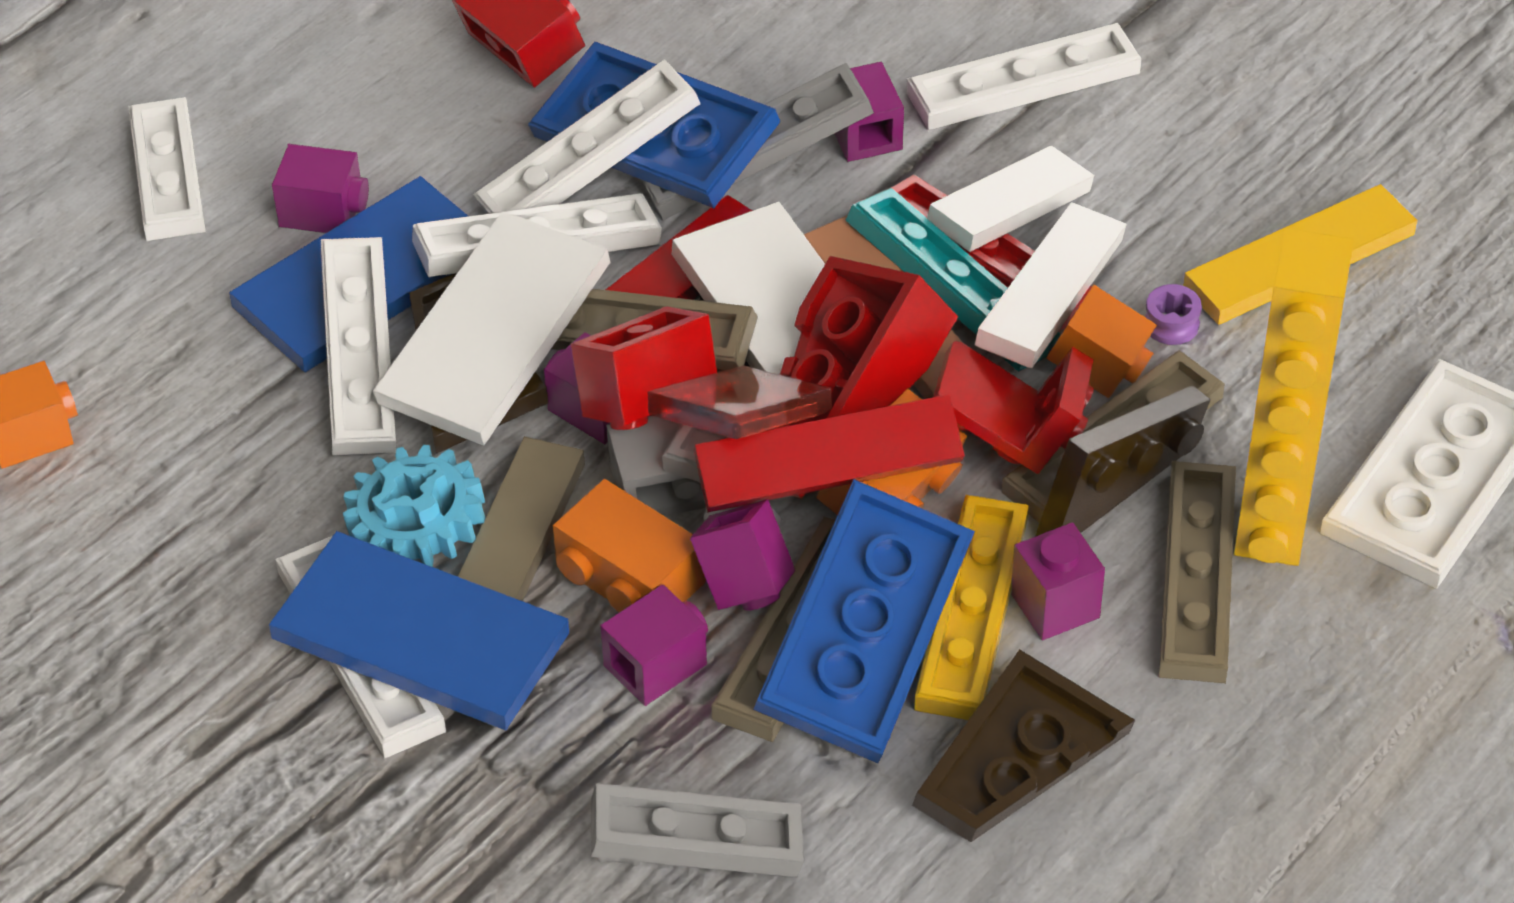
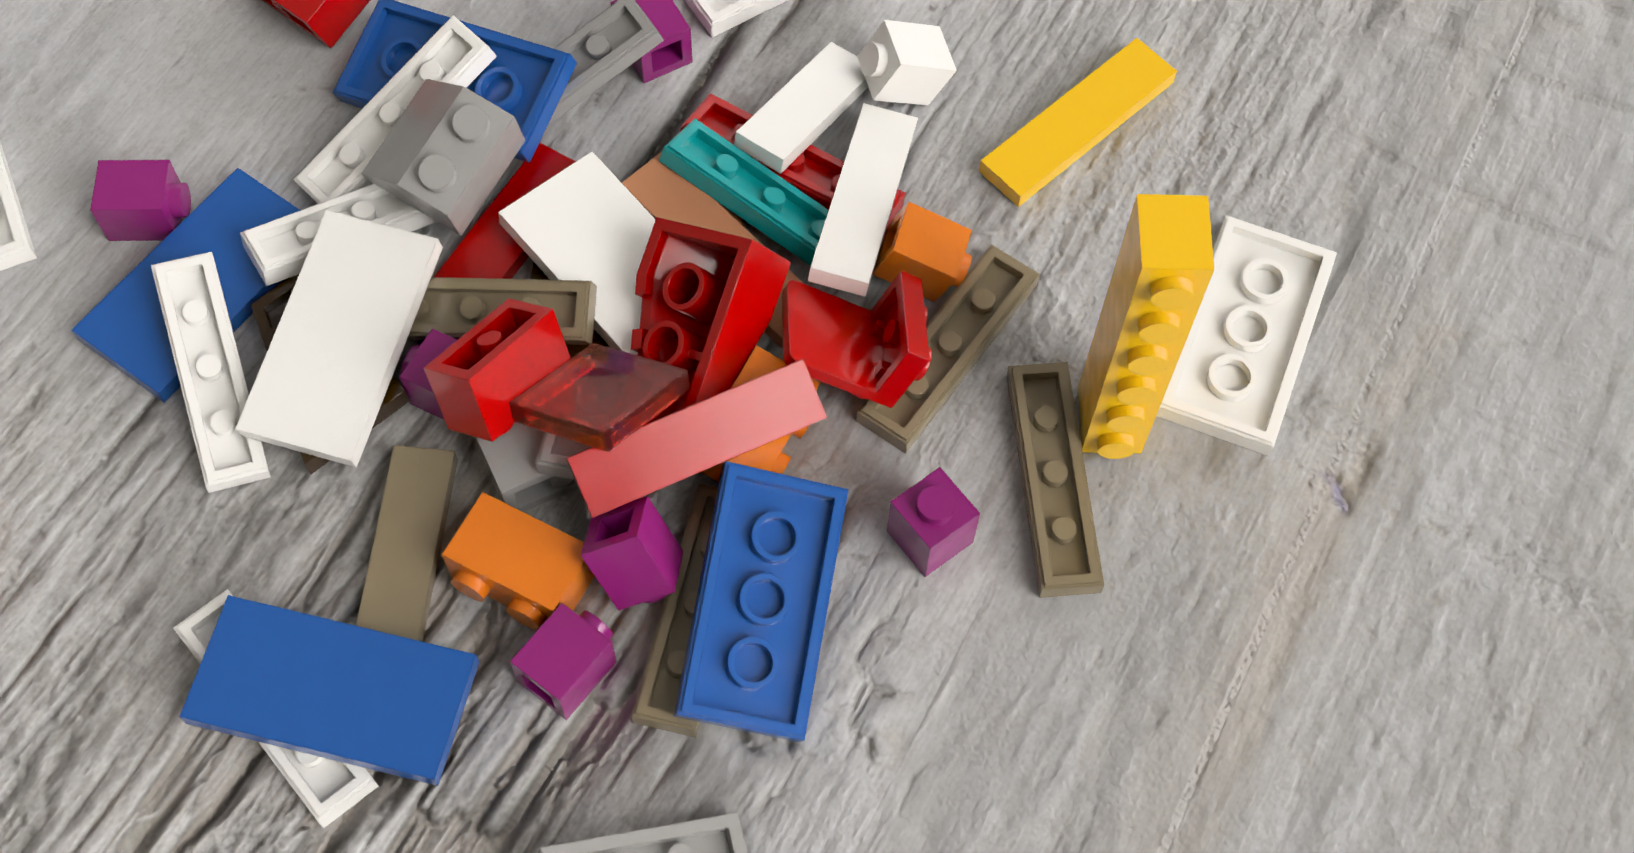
camera: 15 degrees left, 15 degrees up
(416, 504) = (269, 554): medium azure gear -> none
(633, 180) = (446, 153): none -> light grey slope
(971, 623) = (857, 607): yellow tile -> none
(1017, 746) = (927, 707): dark brown wing -> none
(1121, 457) = (964, 381): dark brown wing -> none
(1123, 170) = (906, 62): none -> white brick
(1173, 301) = (974, 190): medium lavender bush -> none

